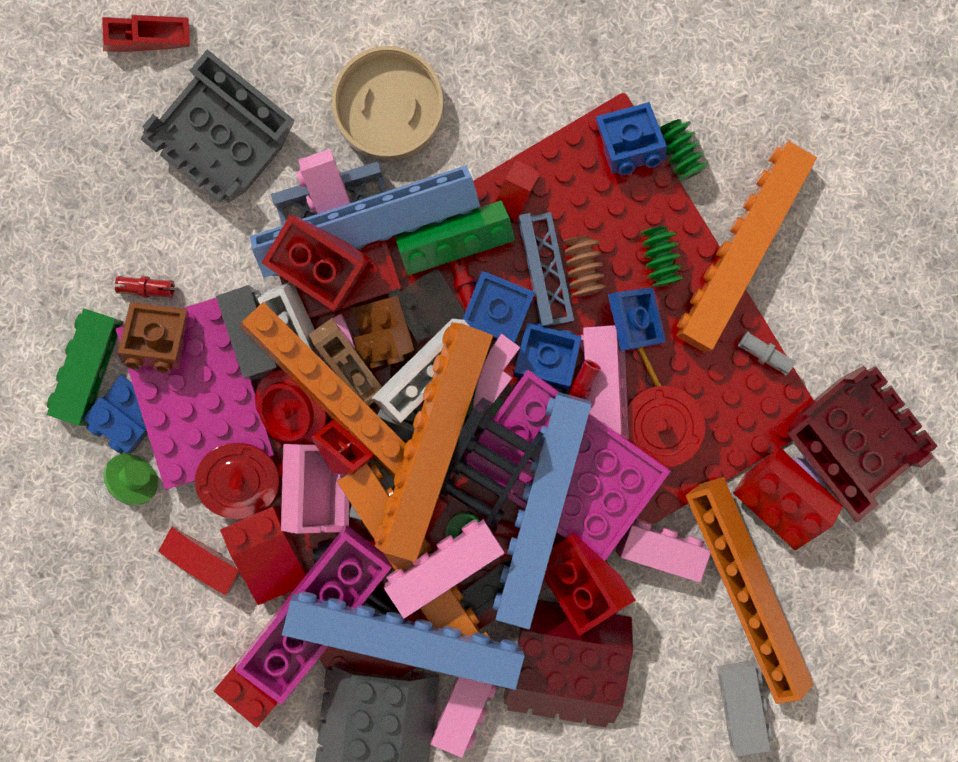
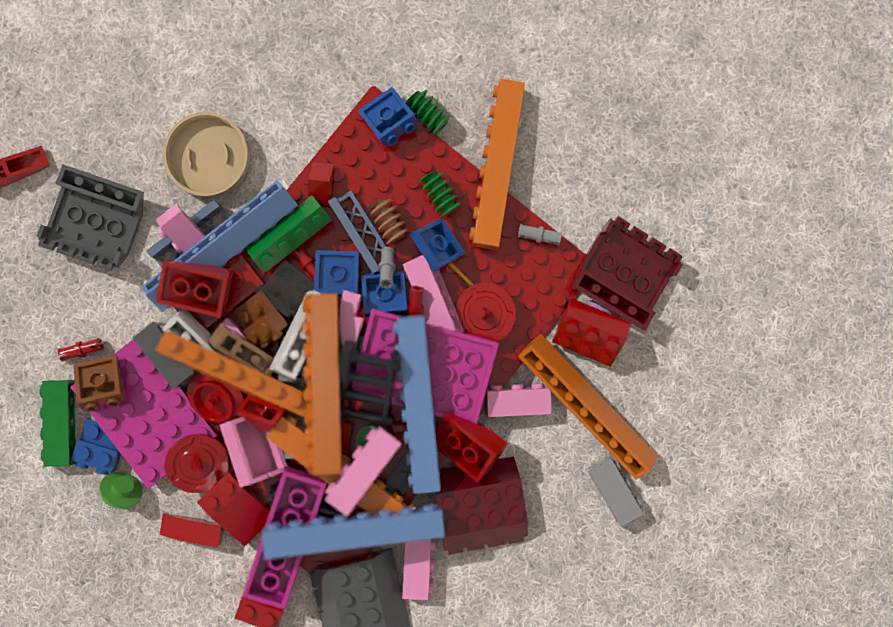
camera: 20 degrees left, 0 degrees up
(562, 325) = (387, 267): none -> light grey pin

